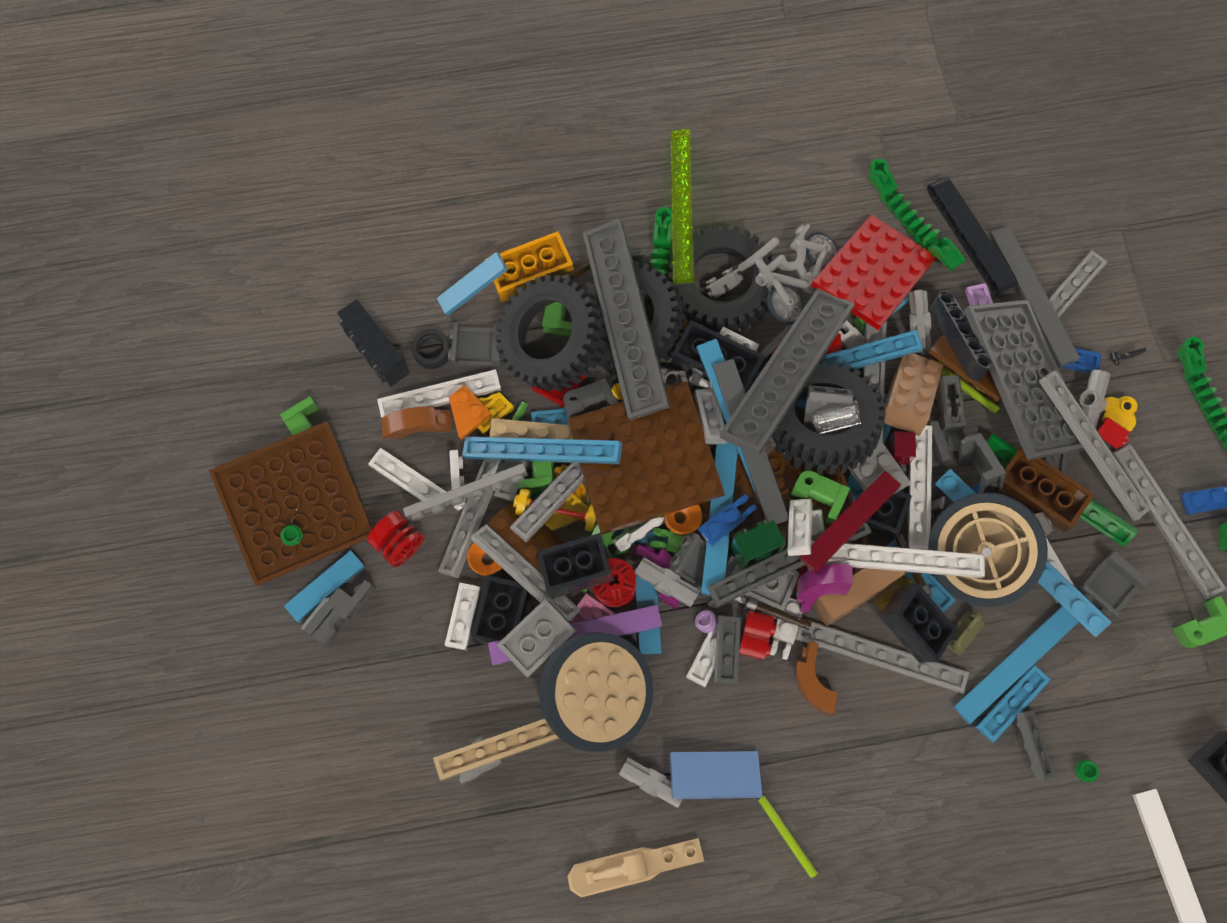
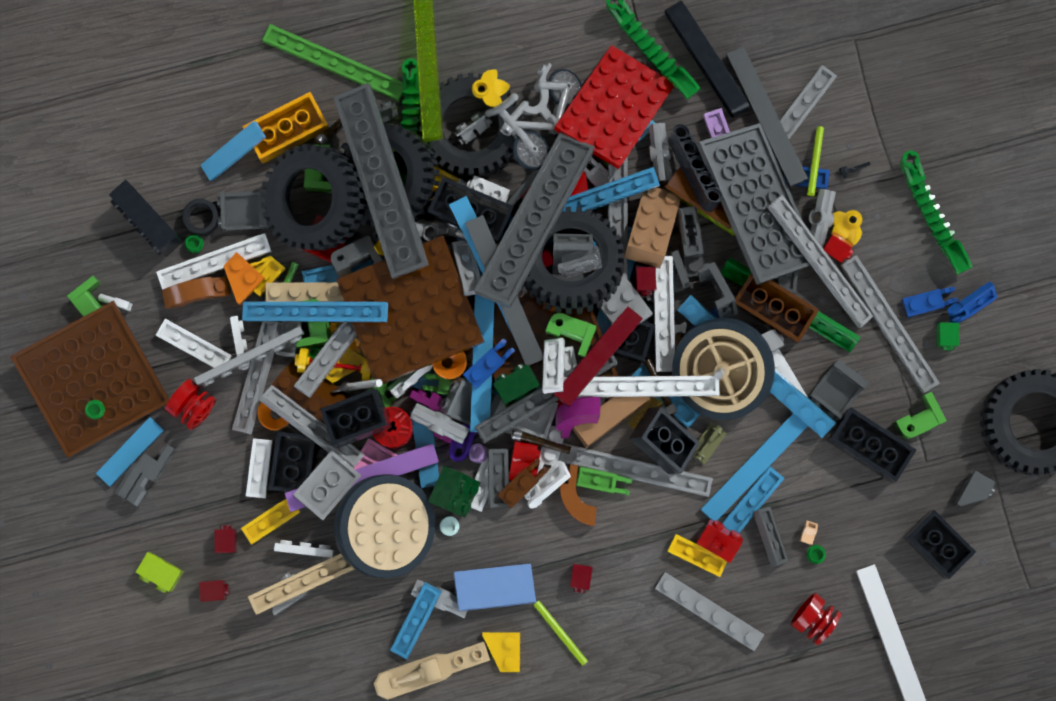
camera: 10 degrees left, 10 degrees up
(336, 428) = (120, 303): none -> white bar
(338, 722) = (159, 572): none -> lime brick
(396, 749) = (213, 590): none -> dark red brick
(416, 693) = (225, 539): none -> dark red brick
(420, 375) = (194, 243): none -> green plate
(467, 676) = (268, 521): none -> yellow plate
(503, 711) = (304, 549): none -> white plate
(569, 536) = (349, 386): none -> white piece
(581, 209) = (333, 62): none -> bright green tile
(622, 805) = (416, 620): none -> dark azure tile
(668, 700) = (449, 526): none -> light aqua tile
(678, 660) = (454, 491): none -> dark green brick
(691, 613) = (465, 447): none -> dark purple plate
(722, 850) = (504, 649): none -> yellow wing
(749, 240) = (493, 88): none -> yellow plate
(754, 658) = (521, 484): none -> reddish brown hinge
(782, 661) = (547, 484): none -> white hinge
(815, 773) = (581, 578): none -> dark red brick
(843, 664) = (601, 481): none -> bright green hinge
(950, 759) = (697, 555): none -> yellow plate
(962, 827) = (709, 611): none -> light grey plate
(977, 744) = (720, 540): none -> red brick
(1078, 745) = (808, 532): none -> light nougat piece
(1086, 344) = (815, 161): none -> lime bar
(1091, 848) = (819, 621): none -> red wheel
(1153, 651) = (871, 445): none -> black brick

